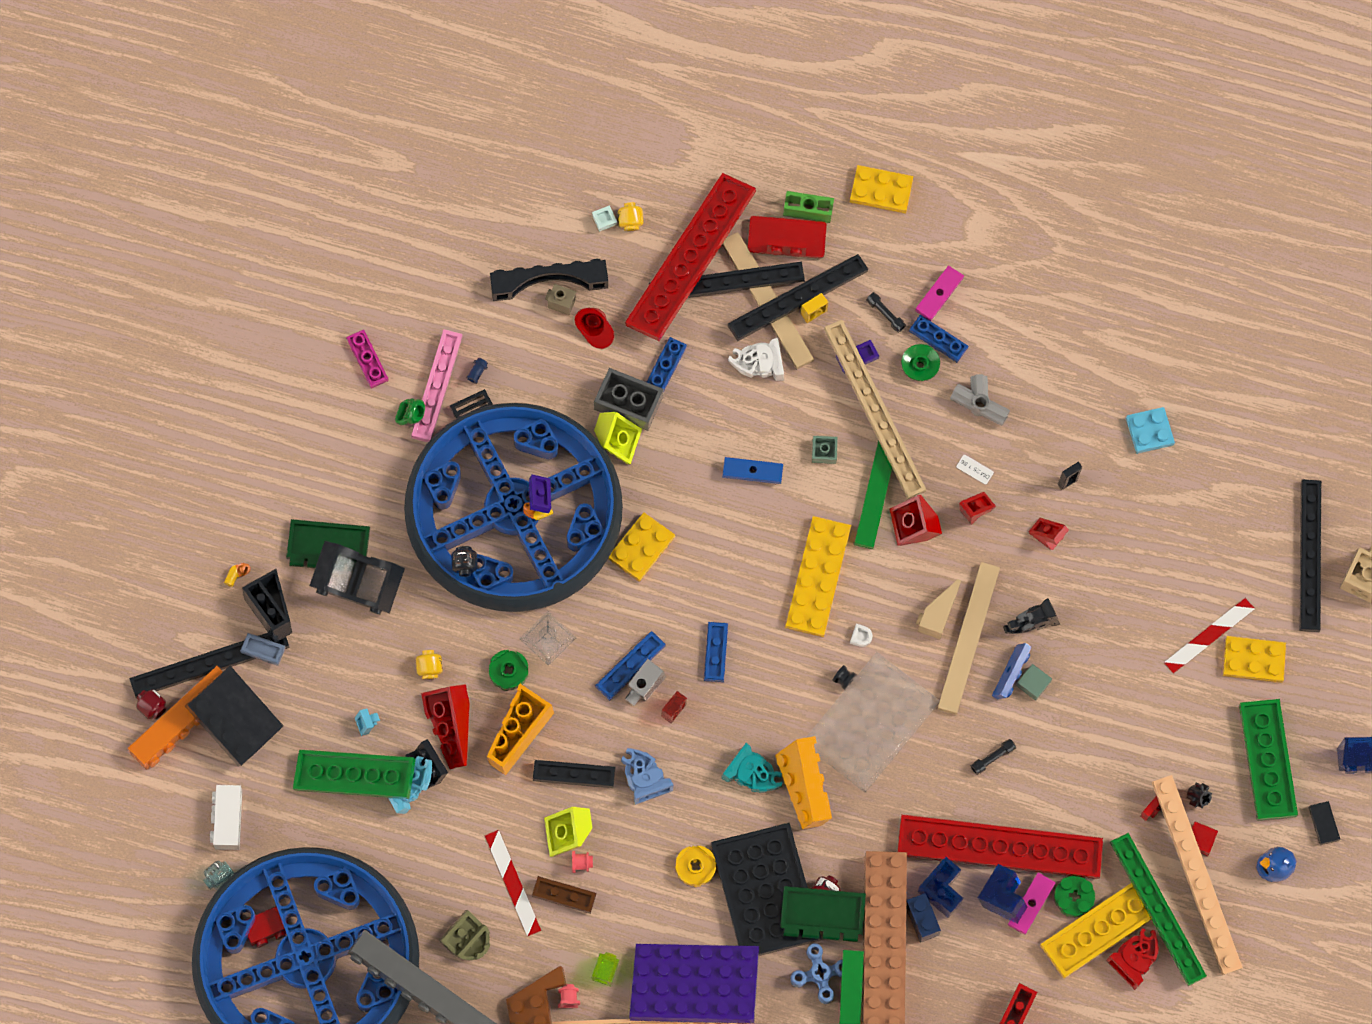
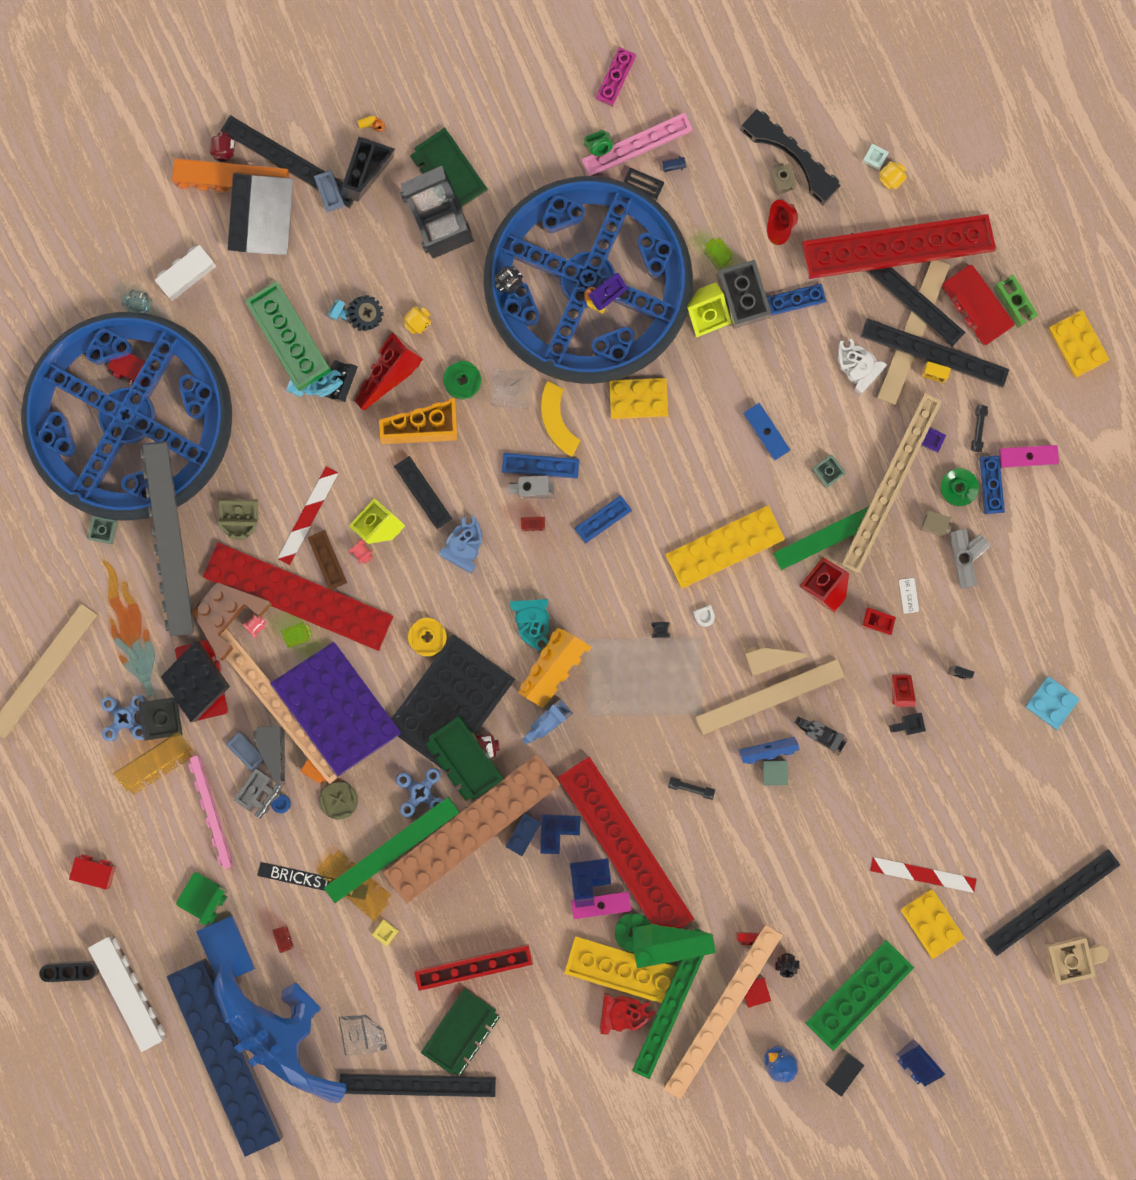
camera: 55 degrees right, 15 degrees up
(380, 701) = (359, 316): none -> black wheel
(574, 942) = (299, 596): none -> red plate
(577, 393) = (718, 252): none -> clear neon green brick
(602, 626) = (553, 420): none -> yellow tile
(846, 825) = (548, 721): none -> medium blue piece
(934, 402) = (936, 523): none -> dark tan brick
(1079, 547) = (911, 724): none -> black plate
(1105, 874) = (664, 944): none -> green wedge

